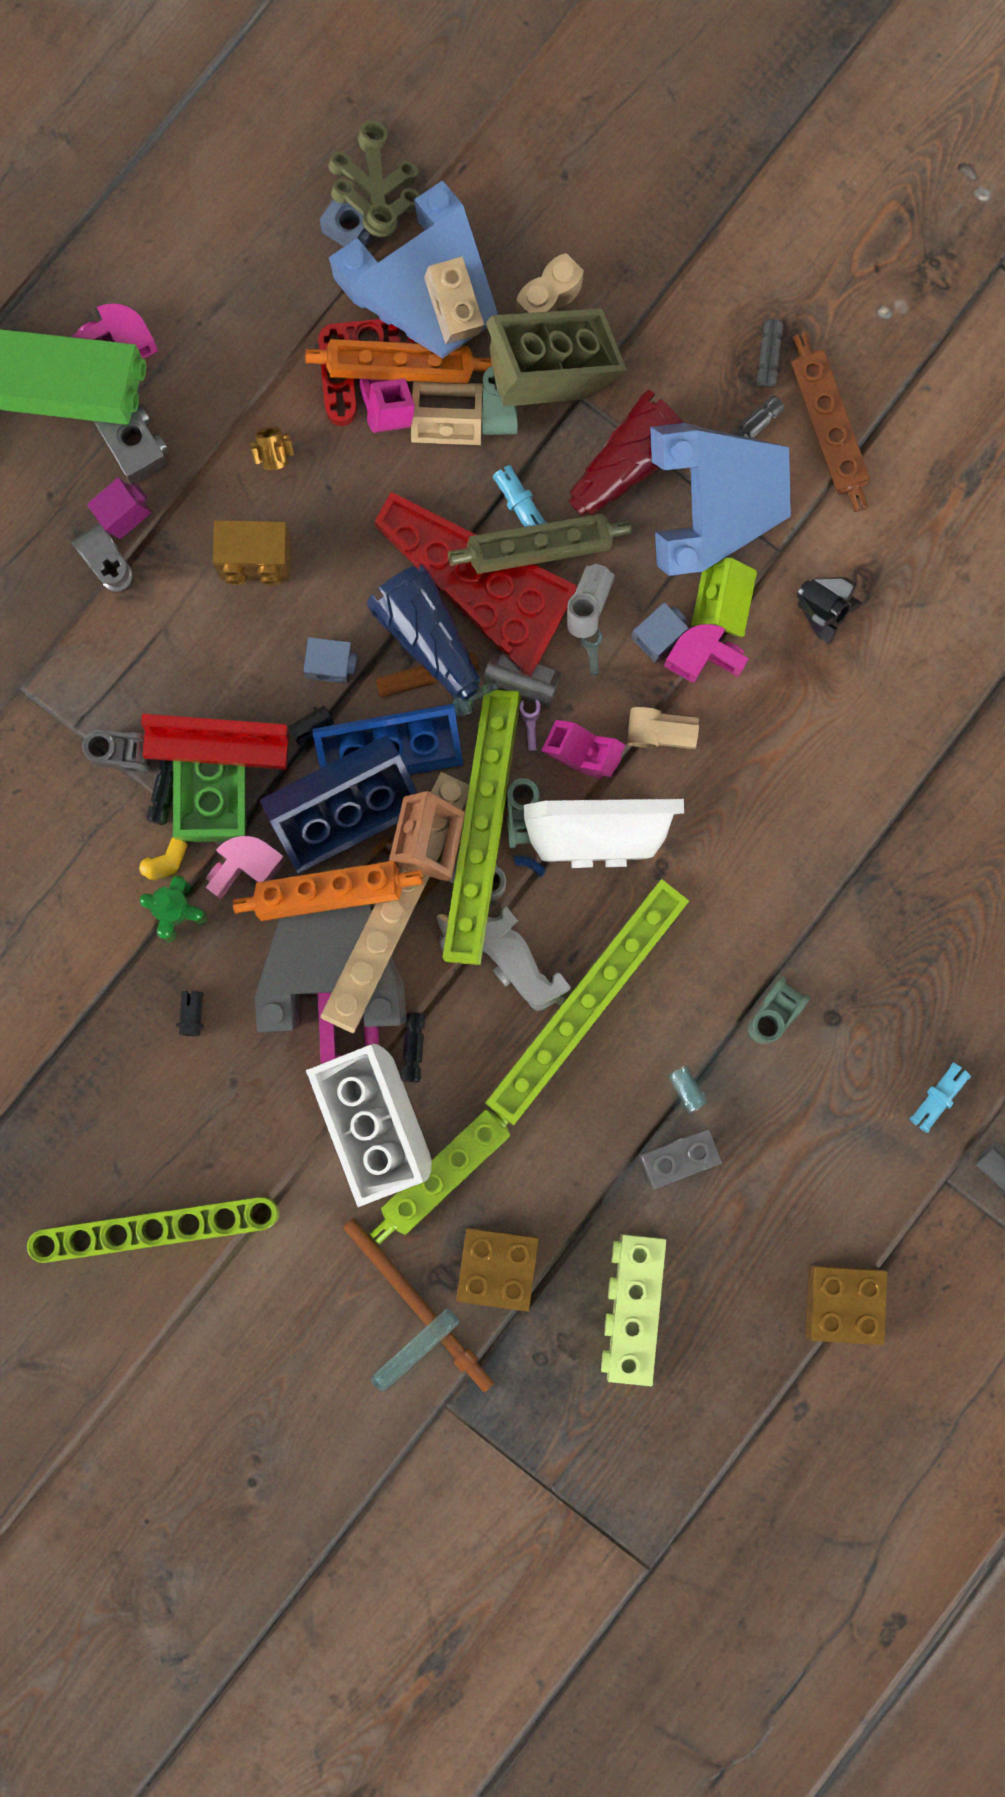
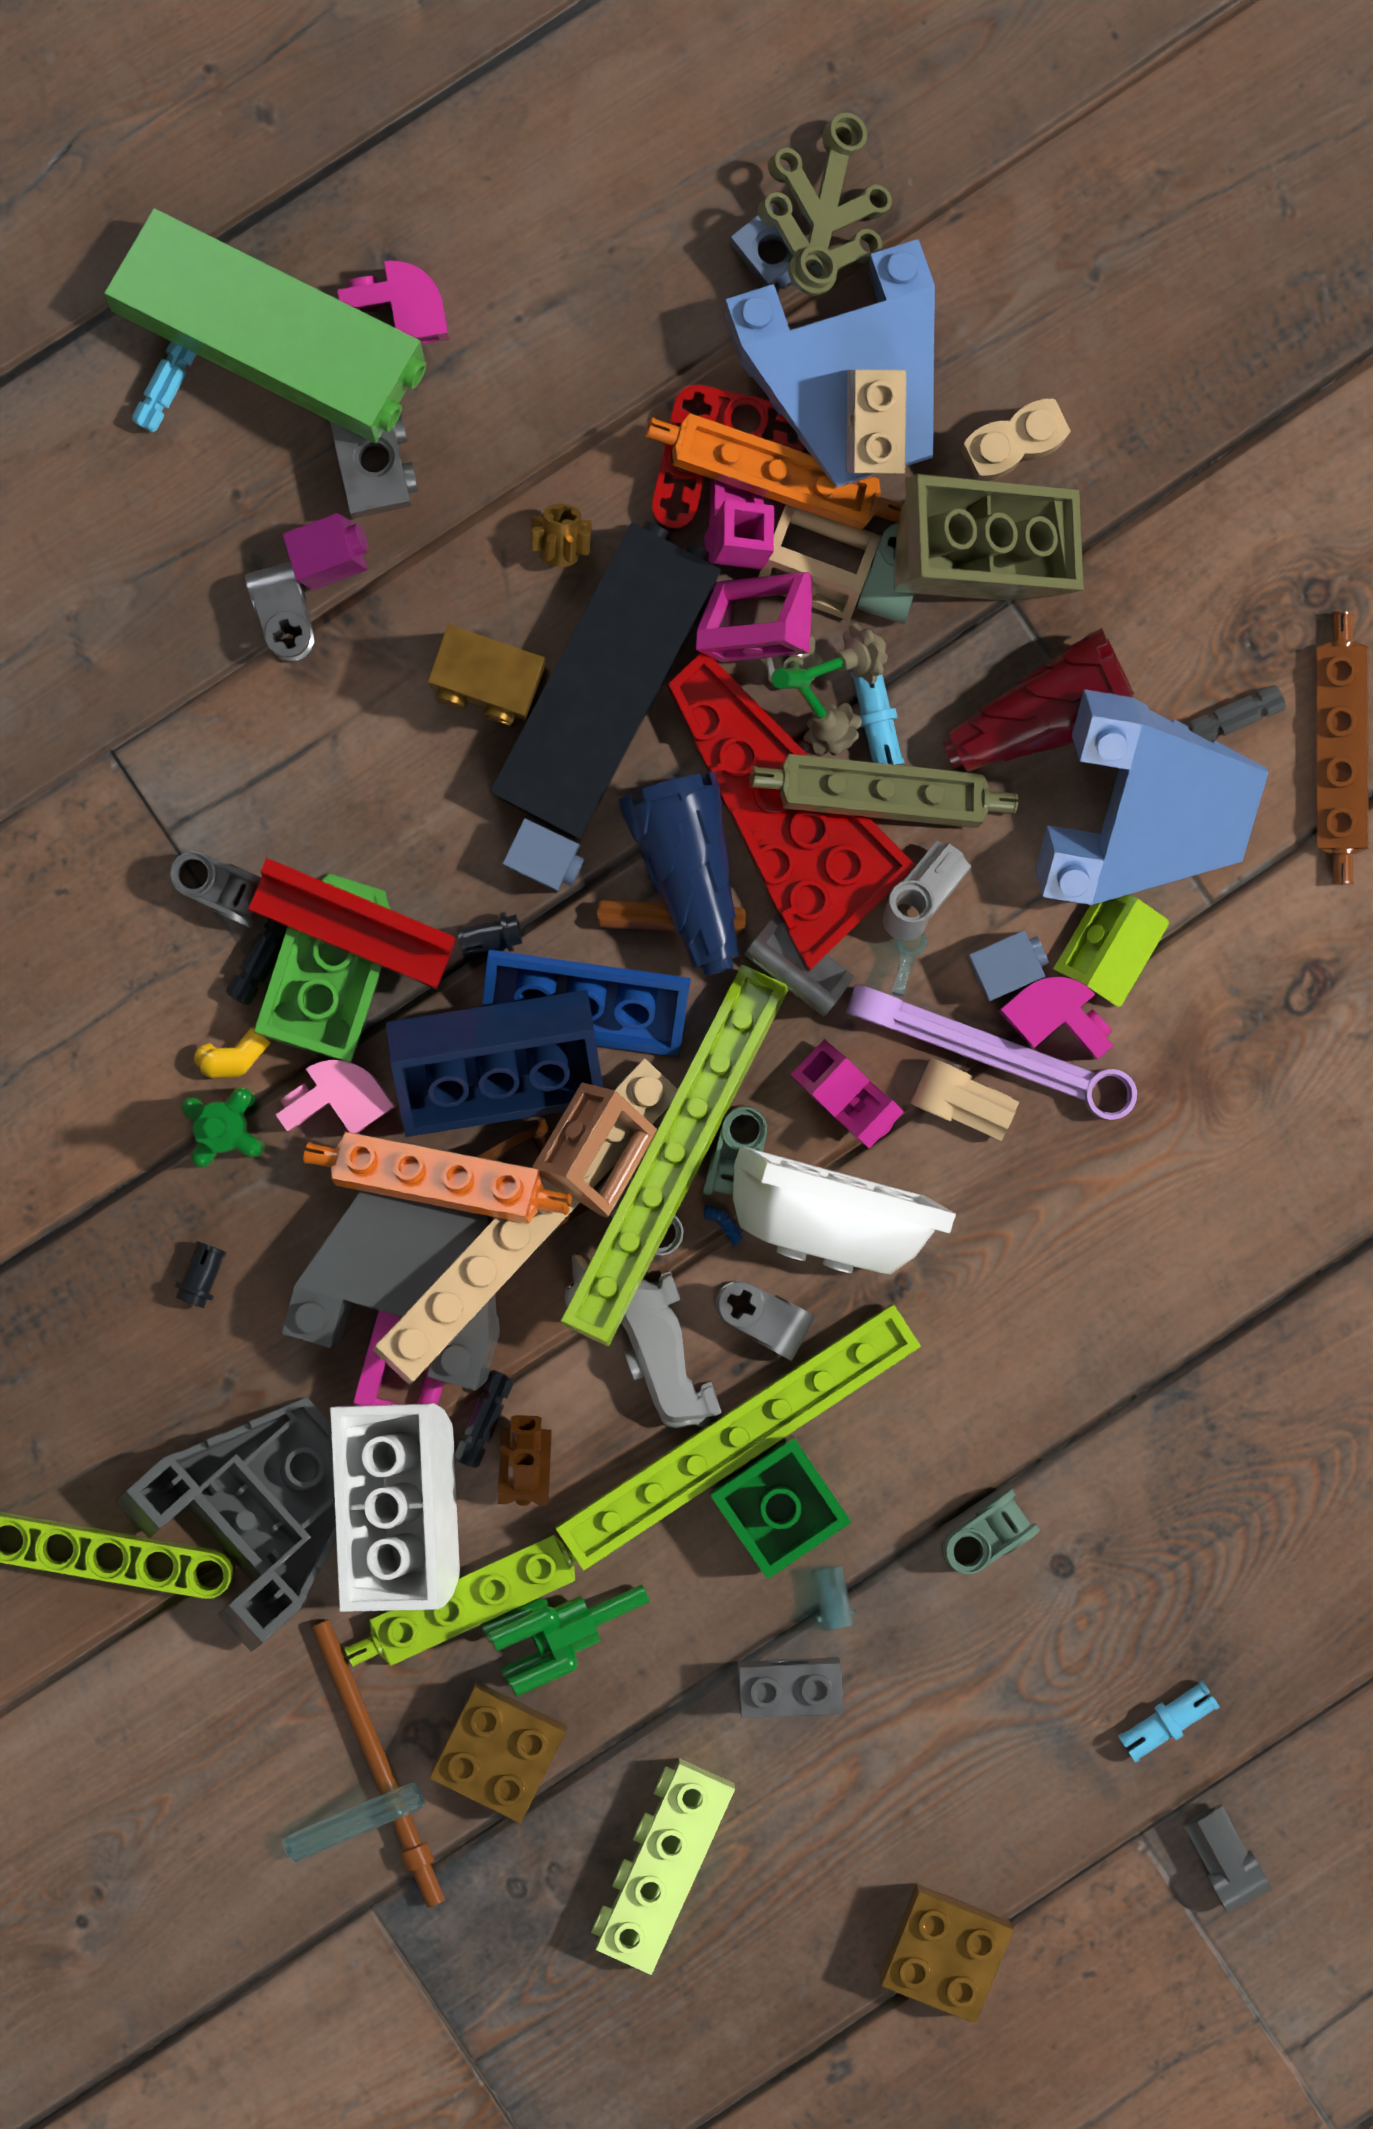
camera: 25 degrees right, 5 degrees up
(282, 1151) = (266, 1502): none -> dark grey wedge
(333, 532) = (606, 679): none -> black brick
(426, 468) = (781, 638): none -> dark pink tile
(450, 1065) = (524, 1462): none -> reddish brown hips
(452, 481) = (830, 727): none -> dark tan plant
(466, 707) = (710, 983): clear light blue hand -> none
(509, 1175) = (556, 1635): none -> green plant
(530, 723) = (788, 1033): lavender hand -> none
(584, 916) = (771, 1320): none -> flat silver piece
(592, 687) = (986, 1048): none -> lavender piece
(632, 1038) = (780, 1507): none -> green brick
(769, 353) = (1292, 624): dark grey axle -> none
(827, 604) = (1247, 1003): black brick -> none

